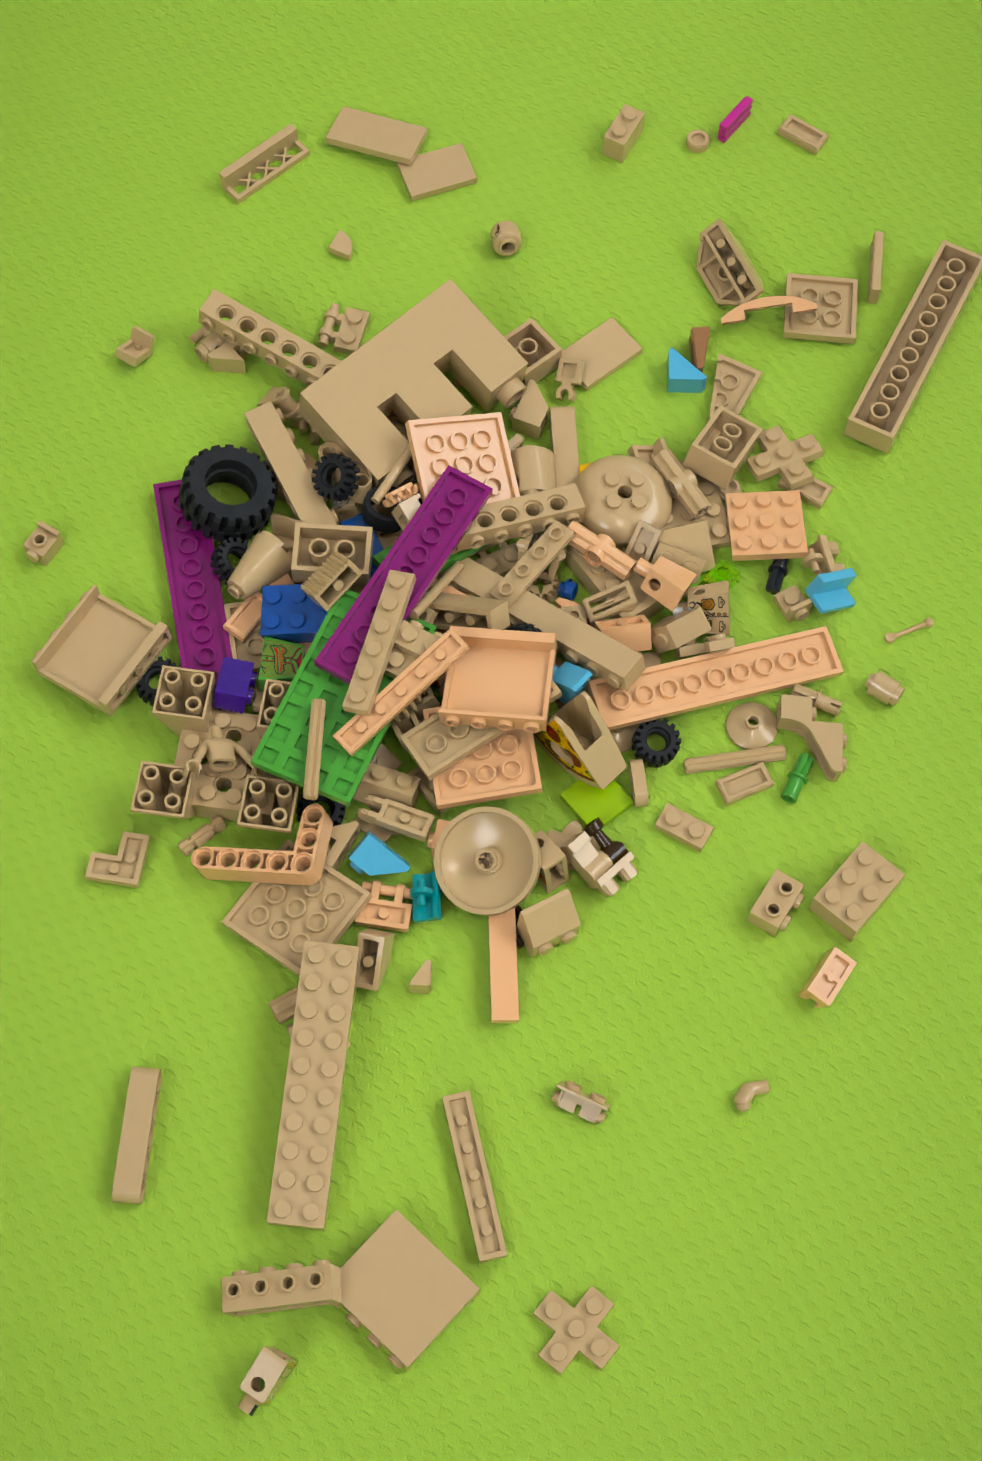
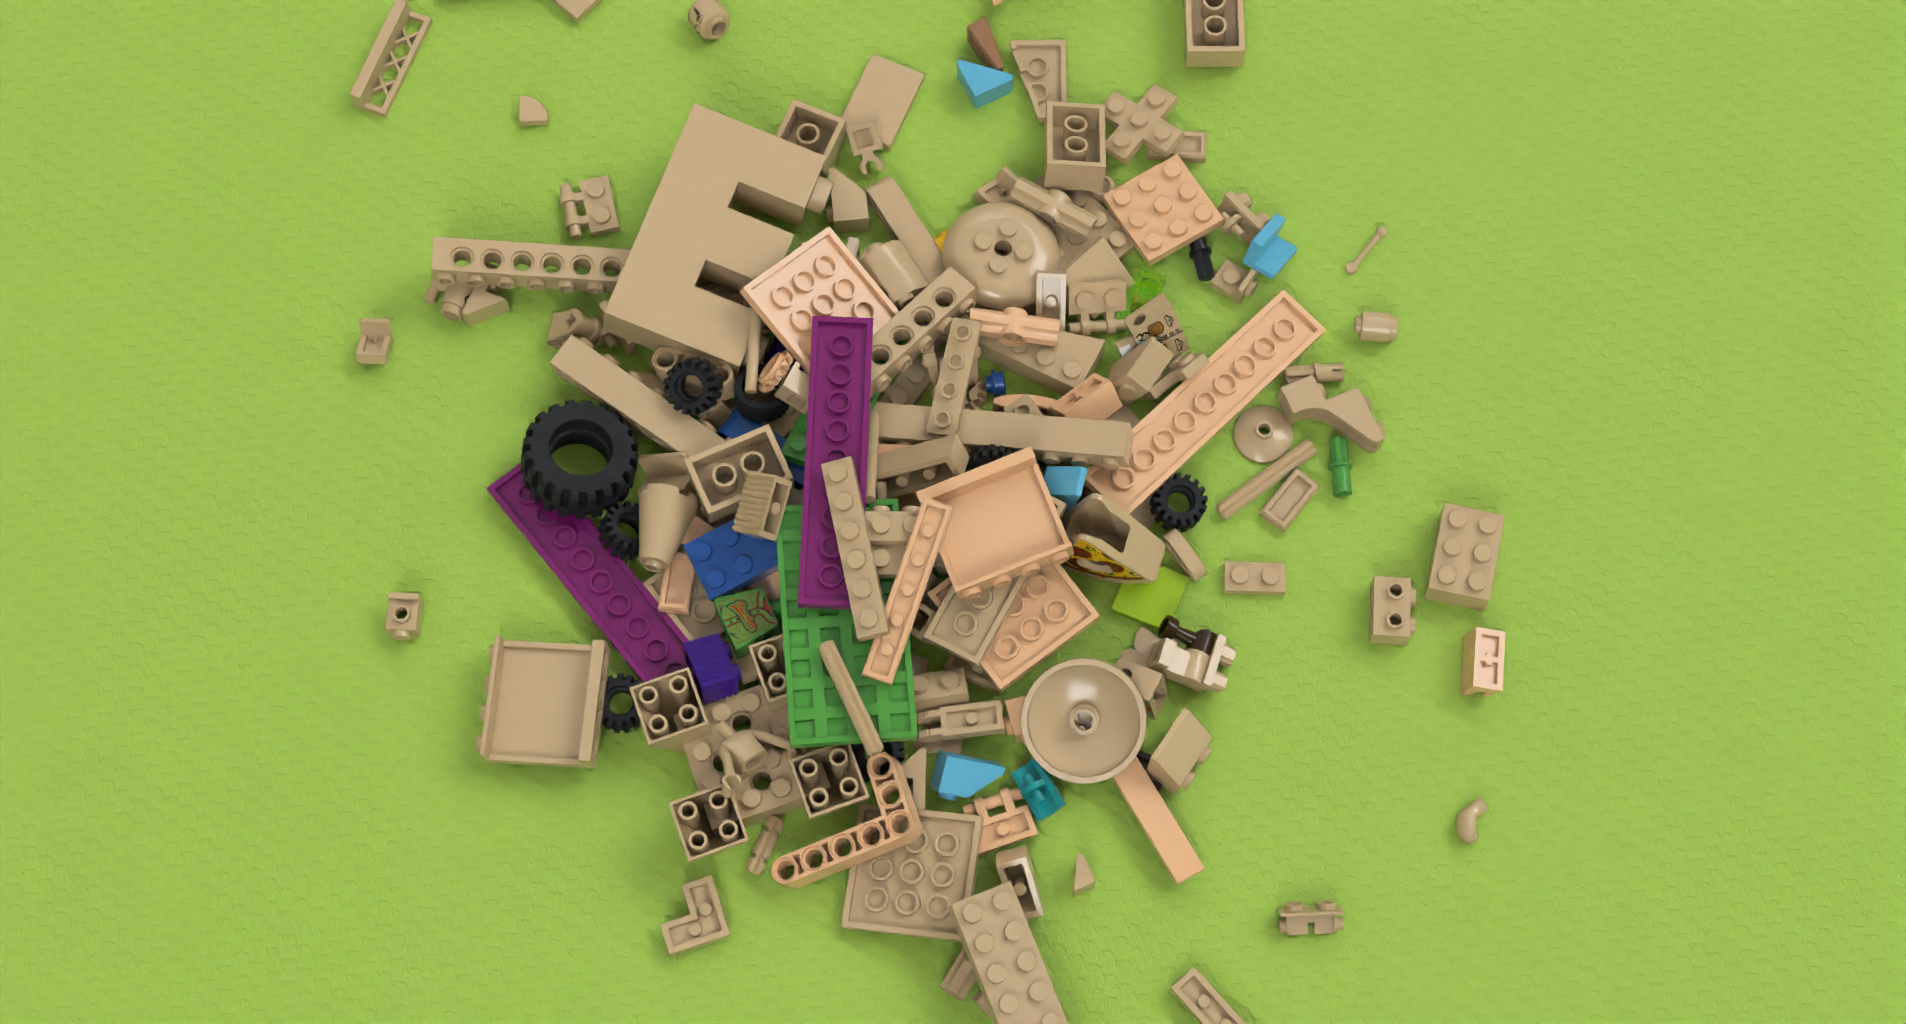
camera: 25 degrees left, 5 degrees up
(614, 610) = (1062, 385): tan tile -> none
(665, 581) = (1099, 325): light nougat torso -> none

